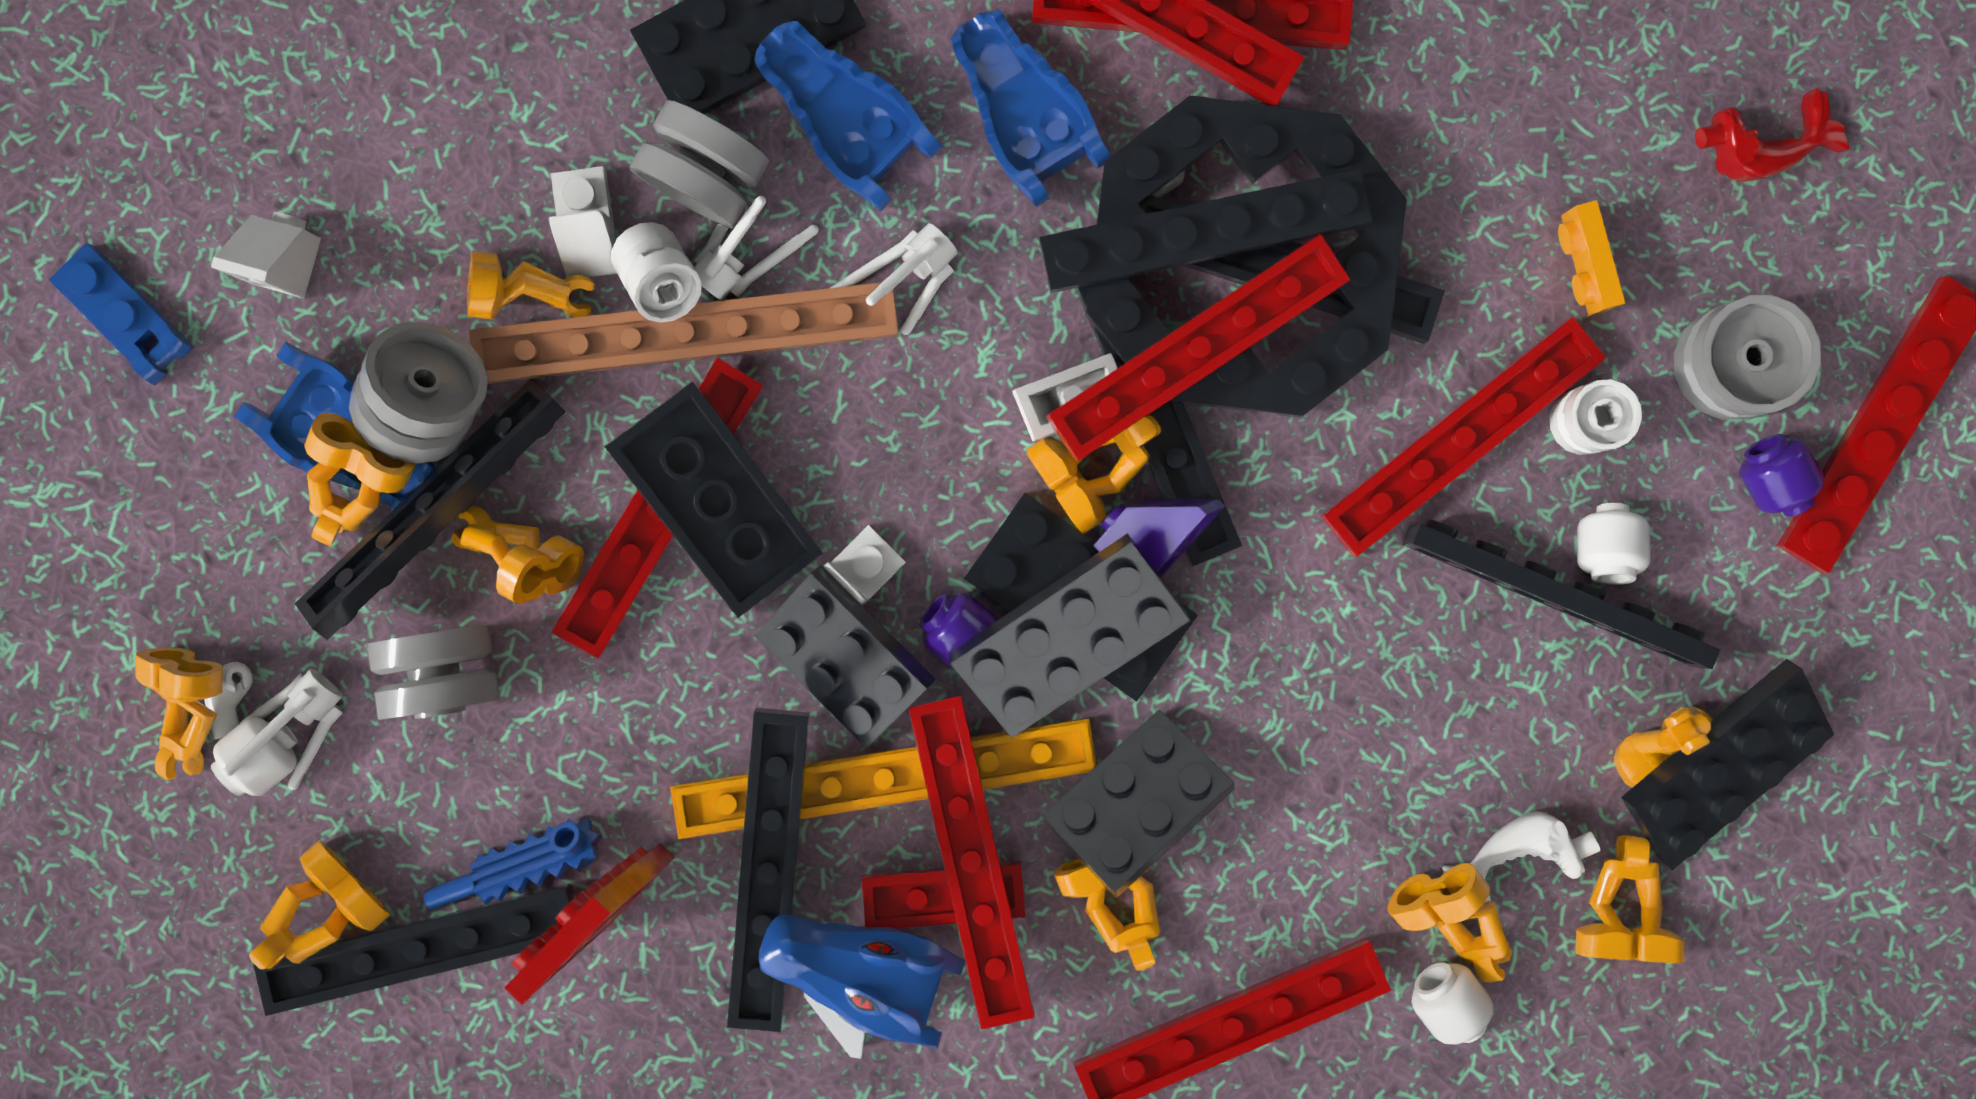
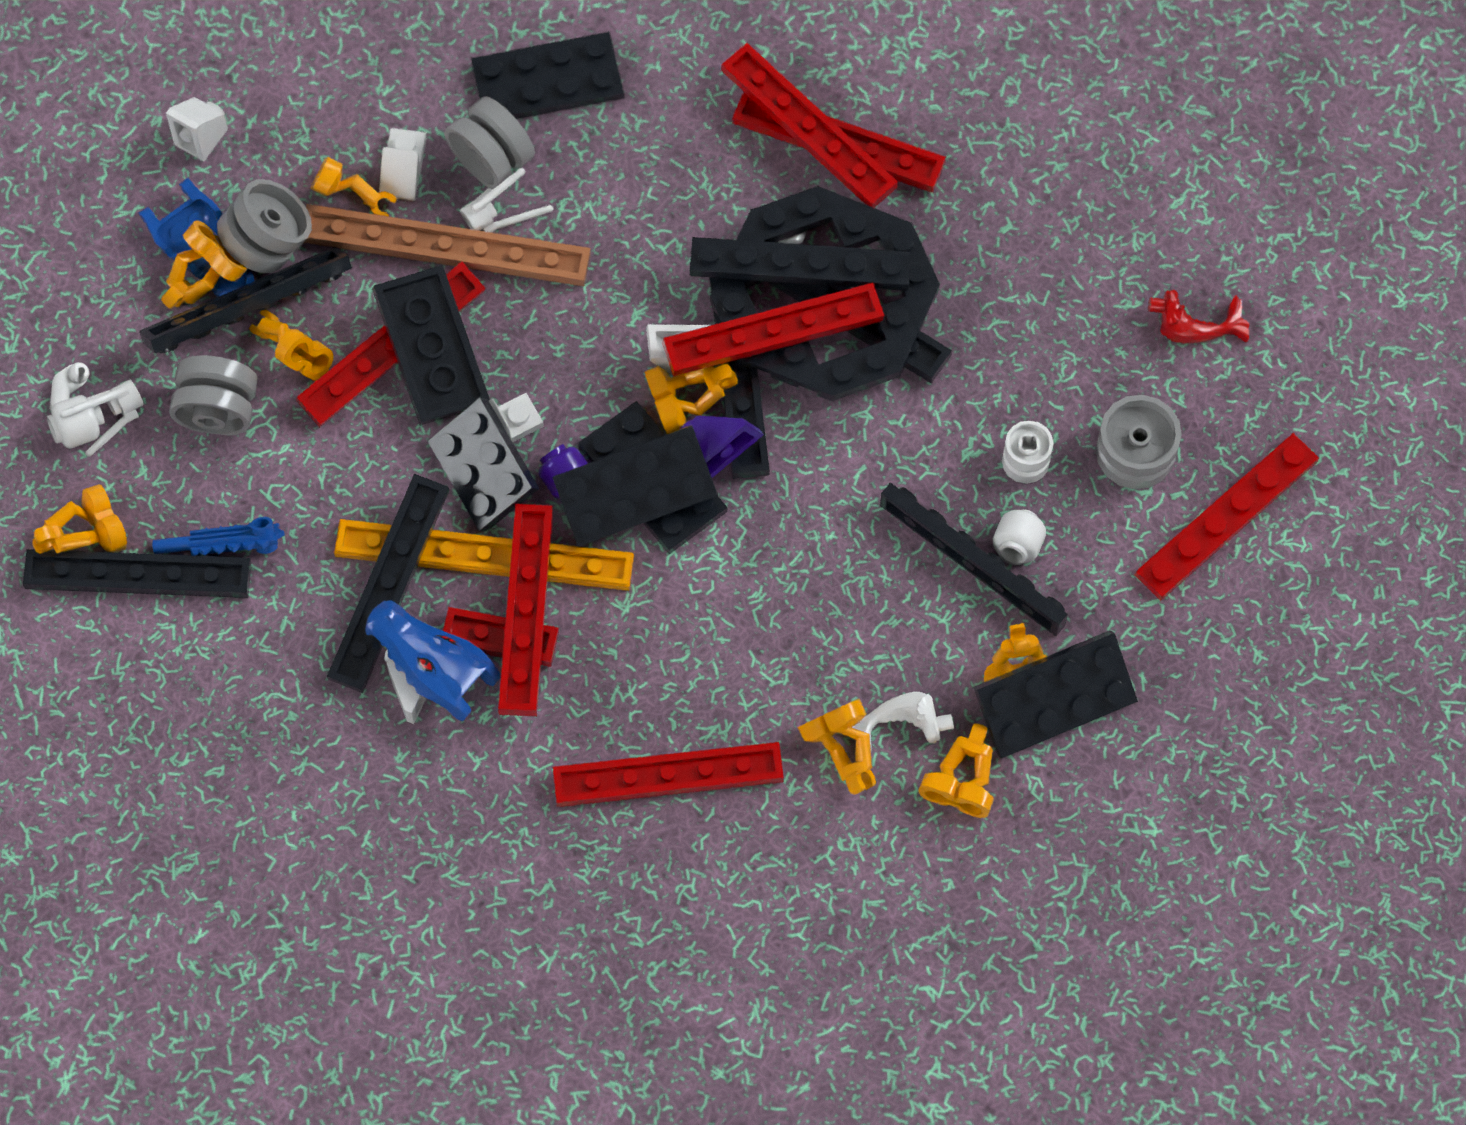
camera: 15 degrees right, 20 degrees down
(120, 312) = (84, 137): blue plate -> none
(182, 683) = (50, 359): light orange piece -> none
(585, 920) = (278, 536): red plate -> none
(656, 272) = (440, 199): white wheel -> none
(848, 114) = (594, 142): blue animal -> none
(924, 255) = (616, 239): white plant -> none
(1027, 109) = (711, 171): blue animal -> none
(1078, 881) = (624, 645): light orange piece -> none
(1138, 803) = (649, 606): black plate -> none
(1452, 1003) = (823, 798): white head -> none
(1463, 437) = (934, 446): red plate -> none
(1586, 239) = (1054, 344): light orange plate -> none
(1781, 475) = (1144, 524): dark purple head -> none

